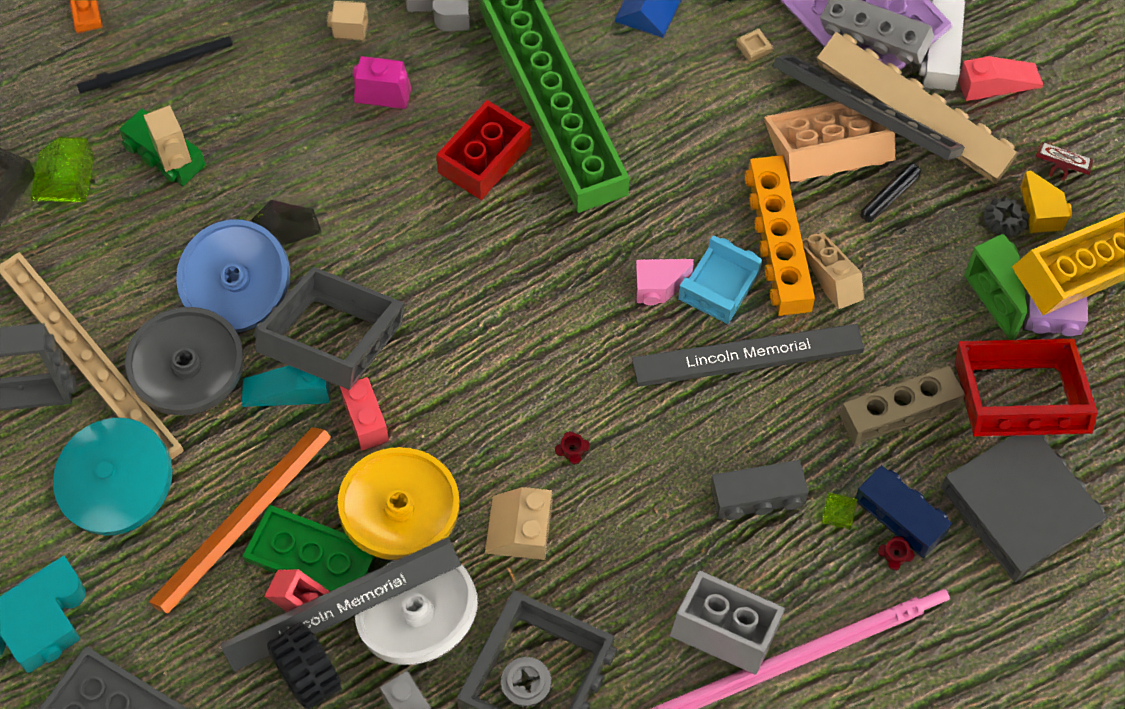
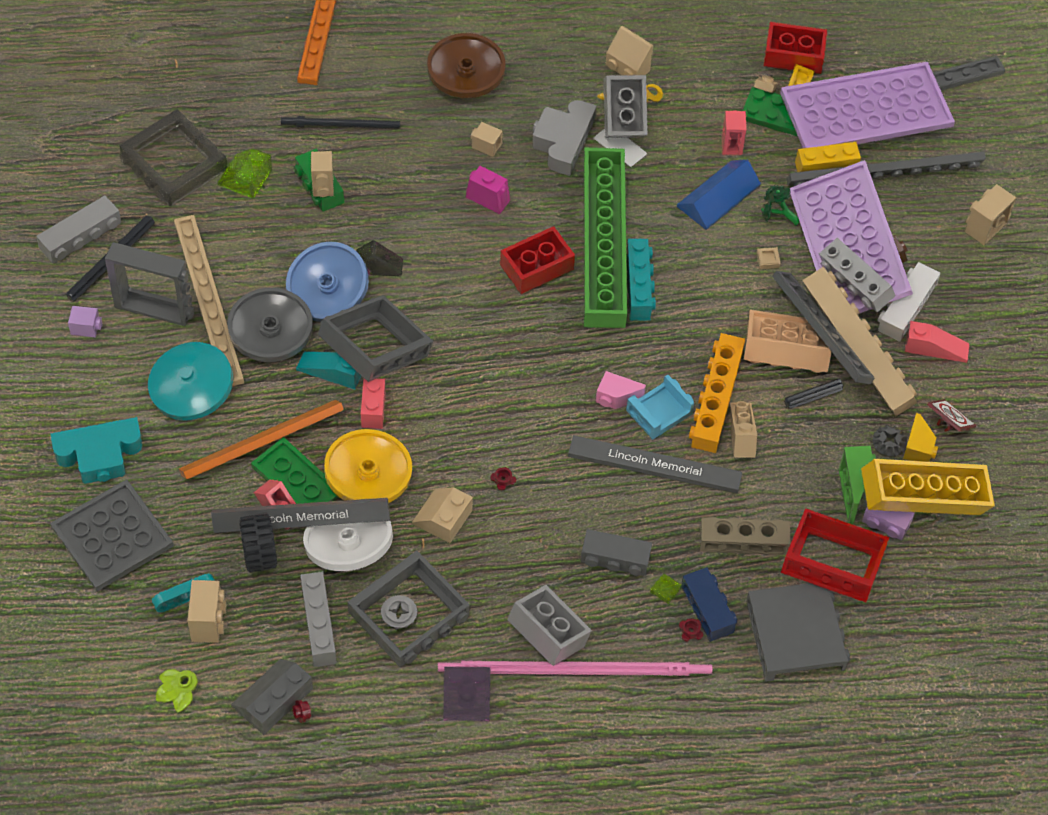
camera: 20 degrees right, 5 degrees down
(623, 132) = (639, 279): none -> teal brick

